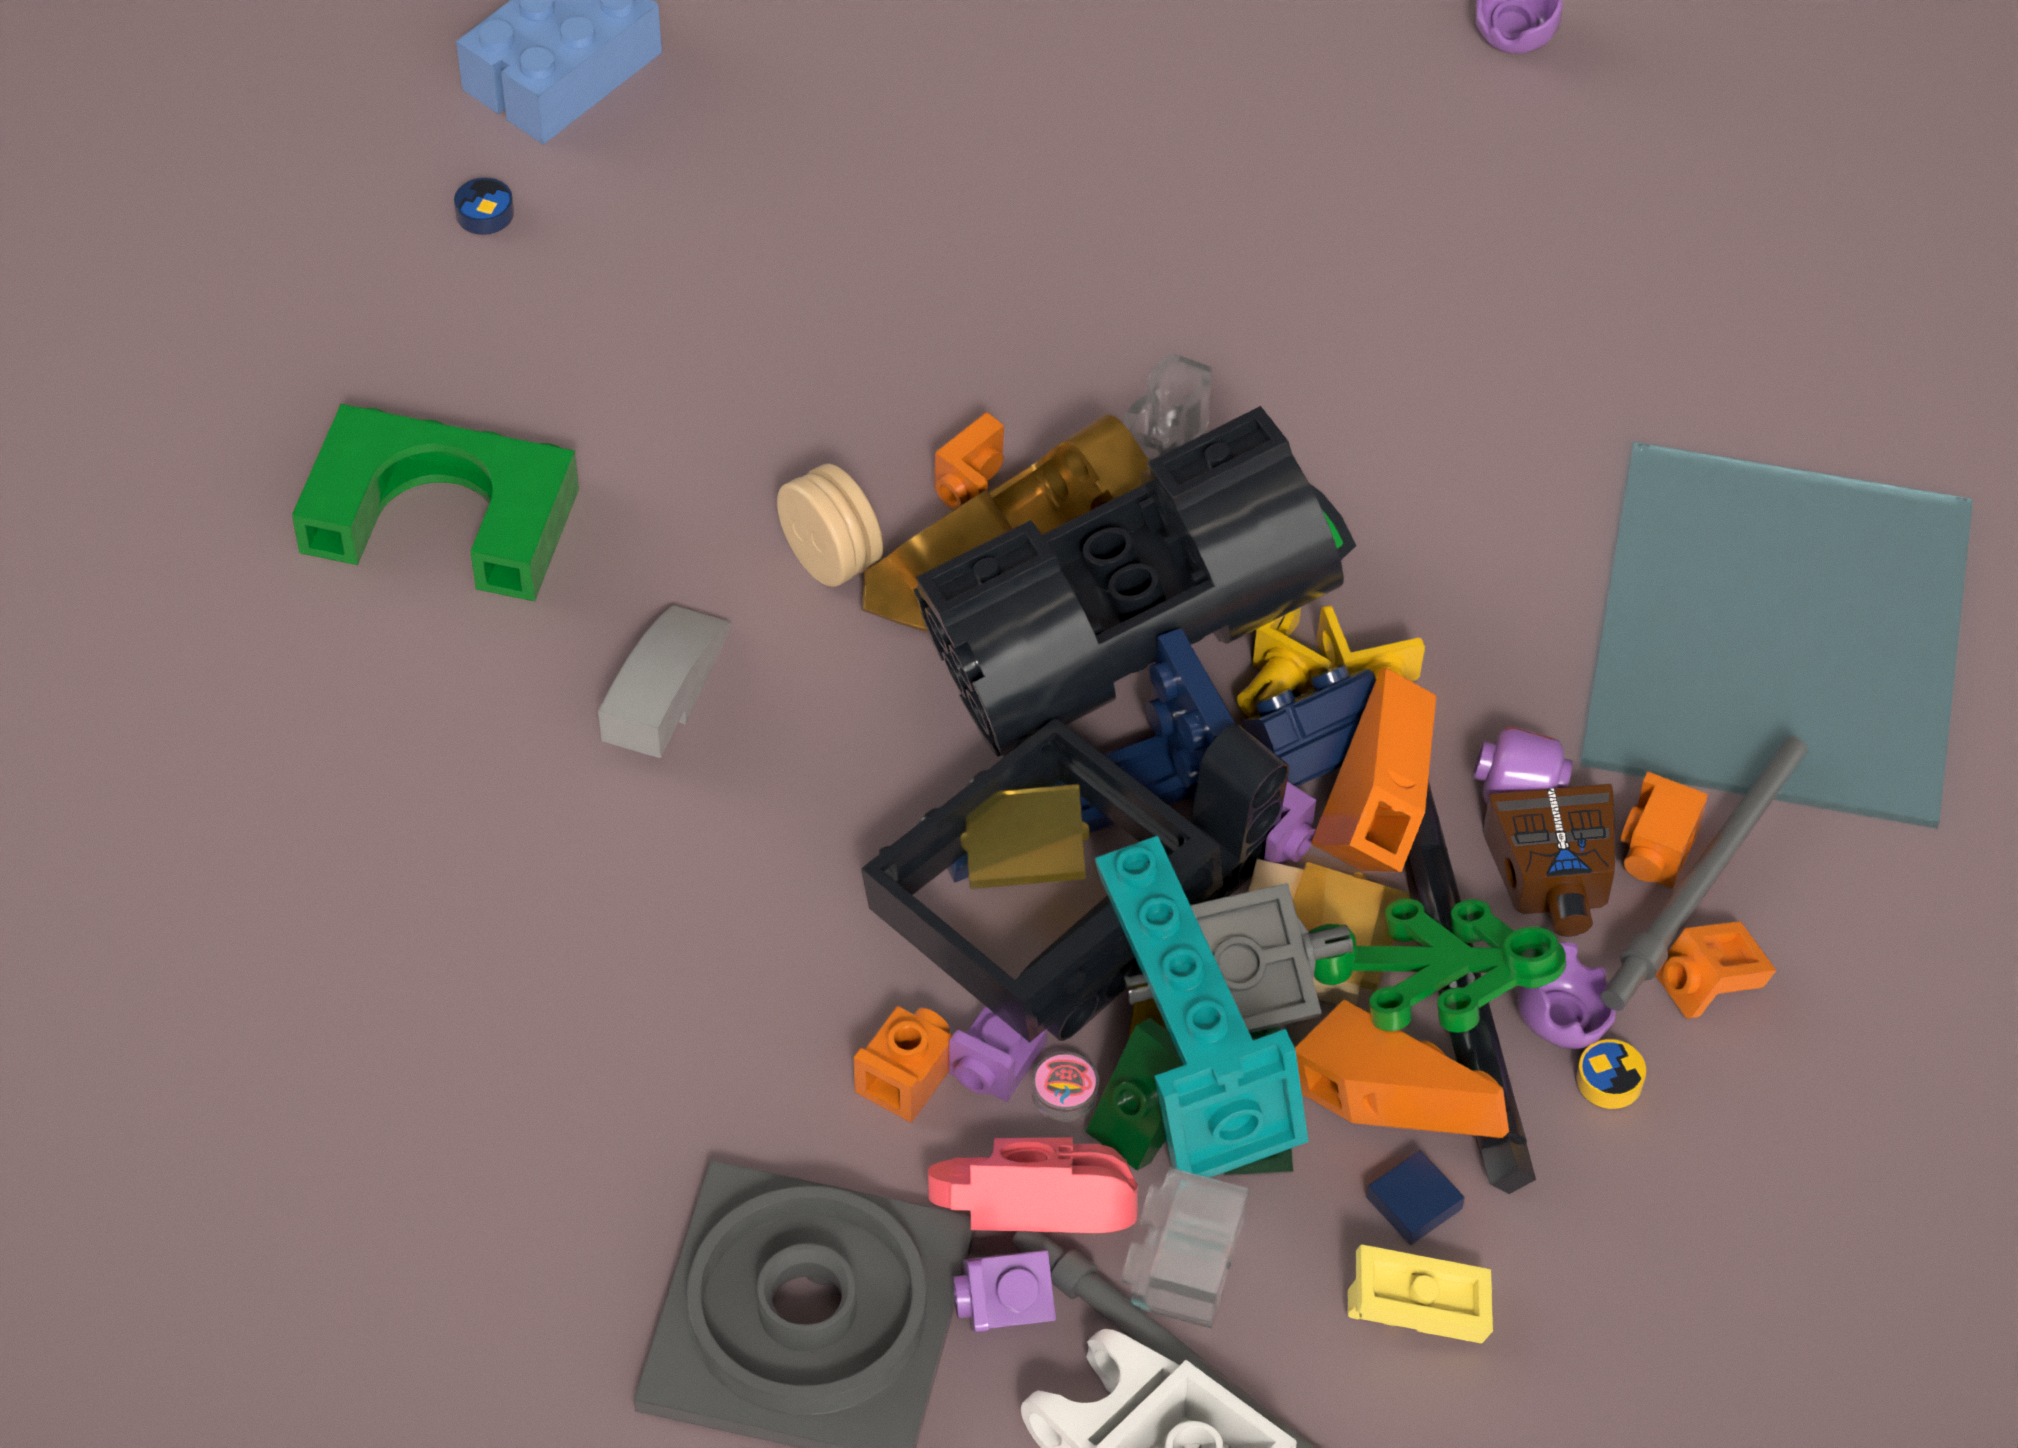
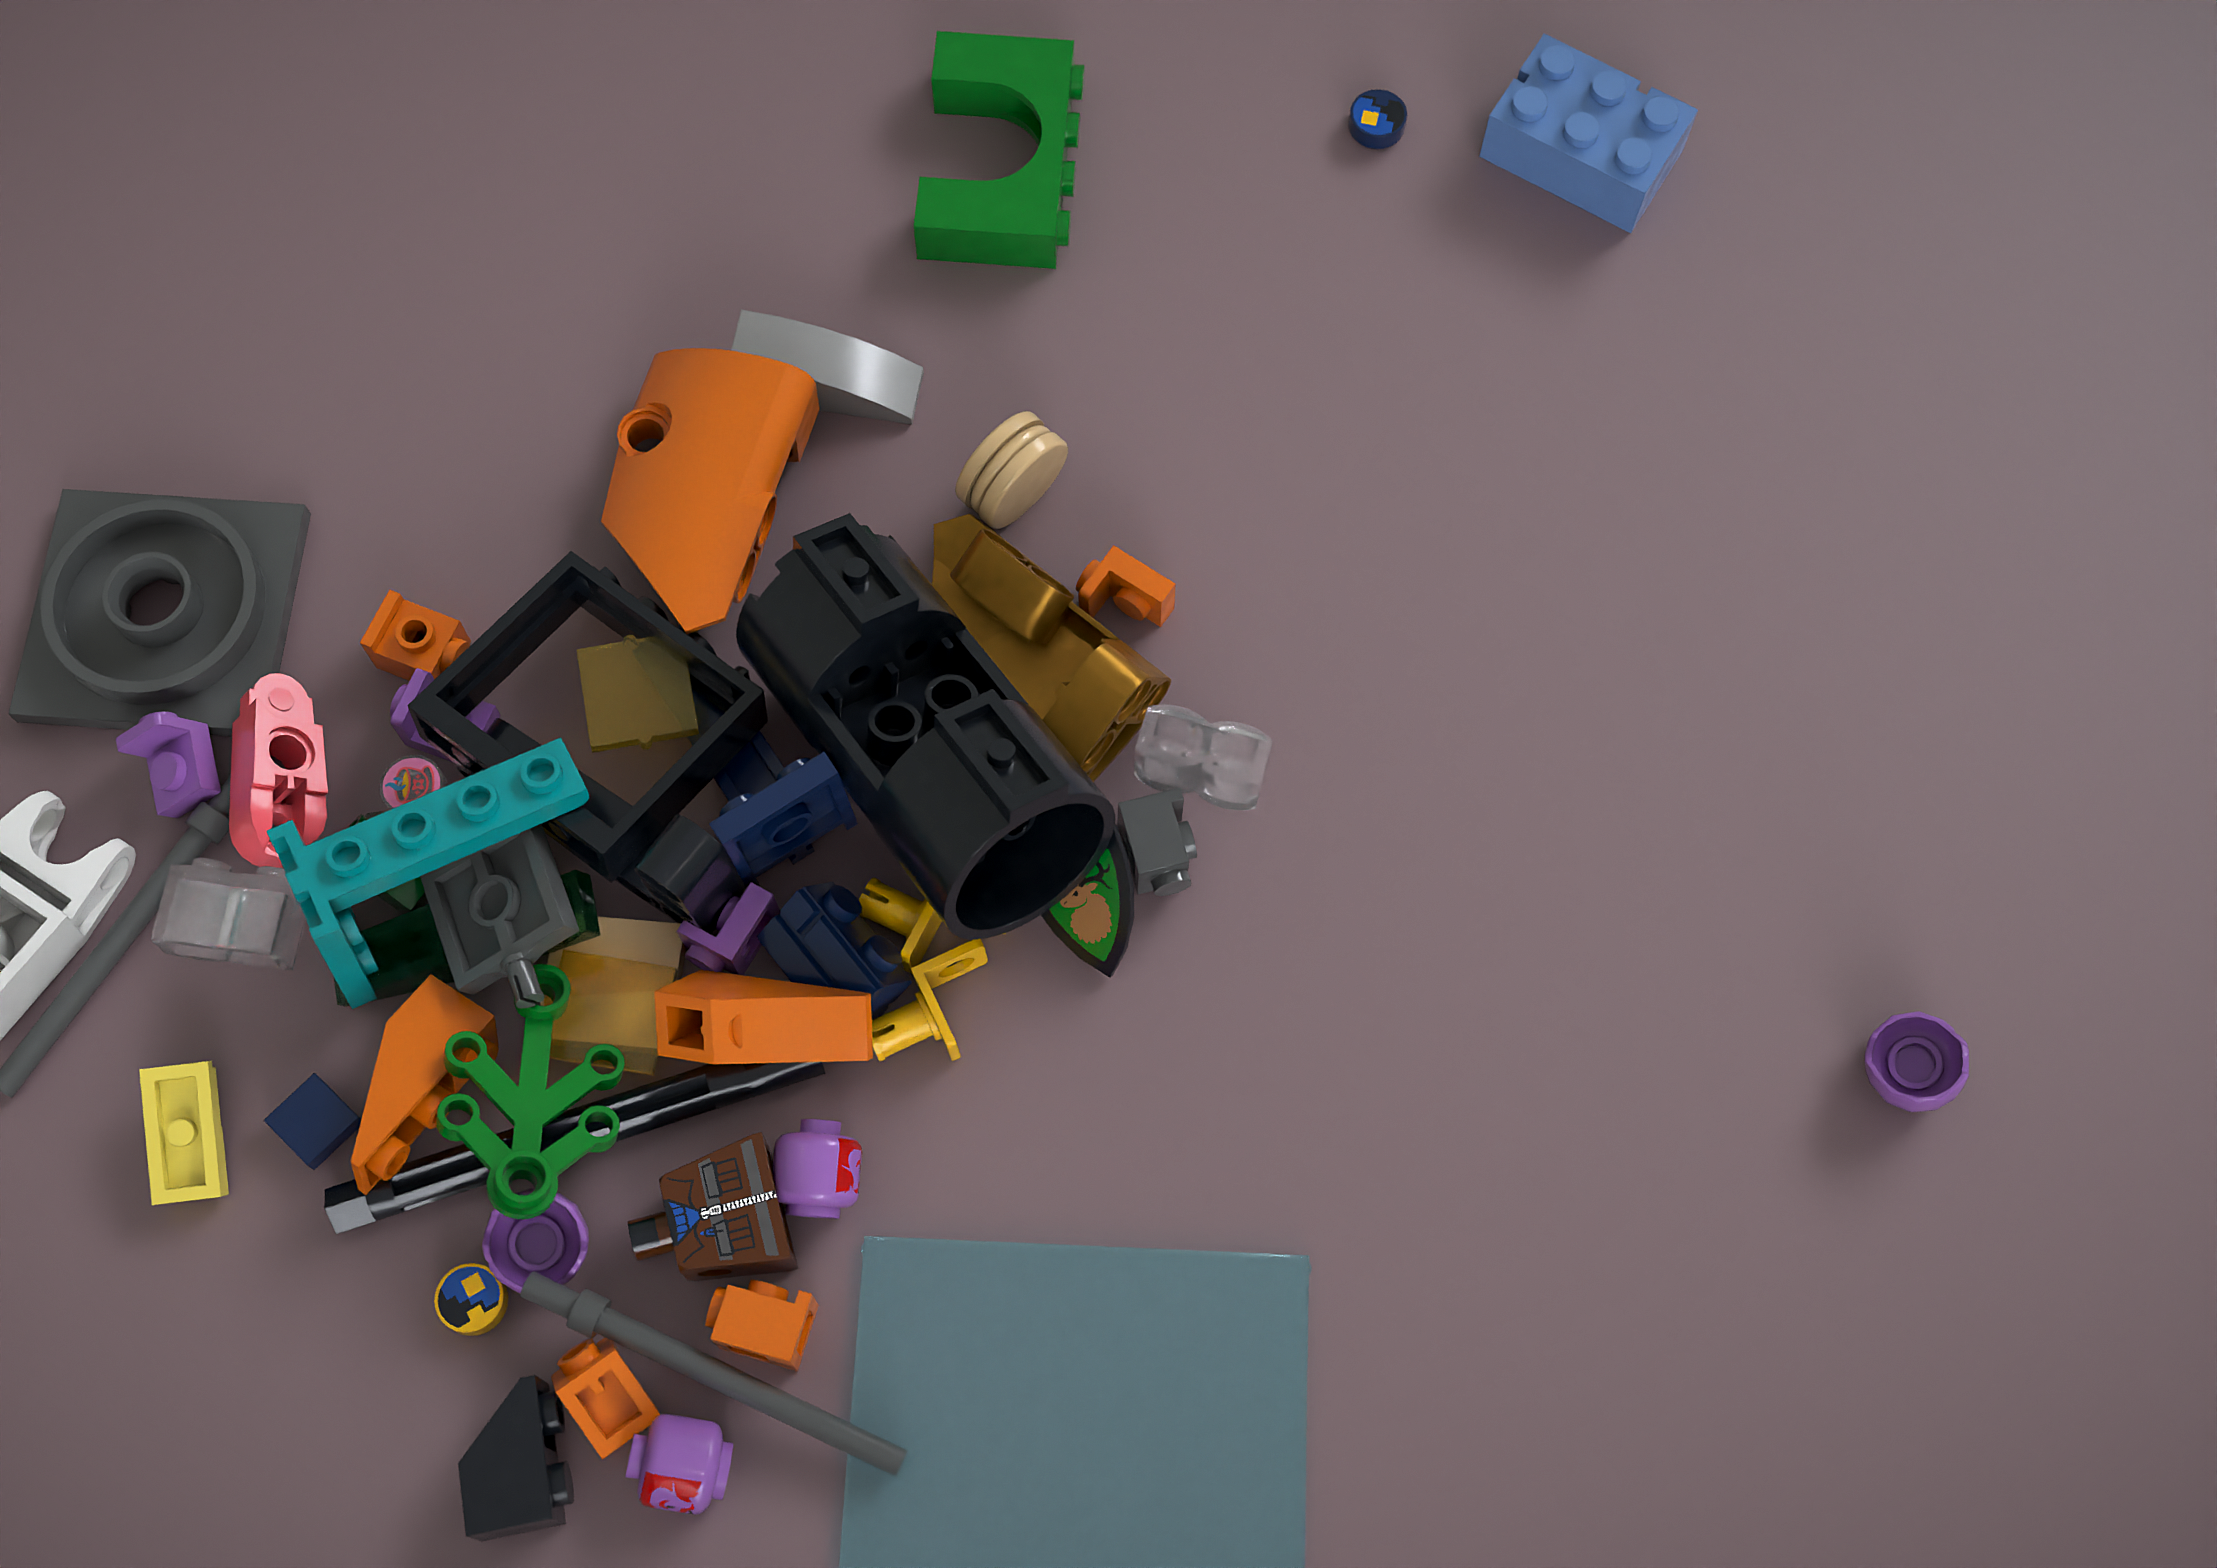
camera: 80 degrees right, 15 degrees up
(779, 767) = (706, 494): none -> orange panel
(1777, 1037) = (513, 1468): none -> black slope
(1786, 902) = (680, 1464): none -> medium lavender head

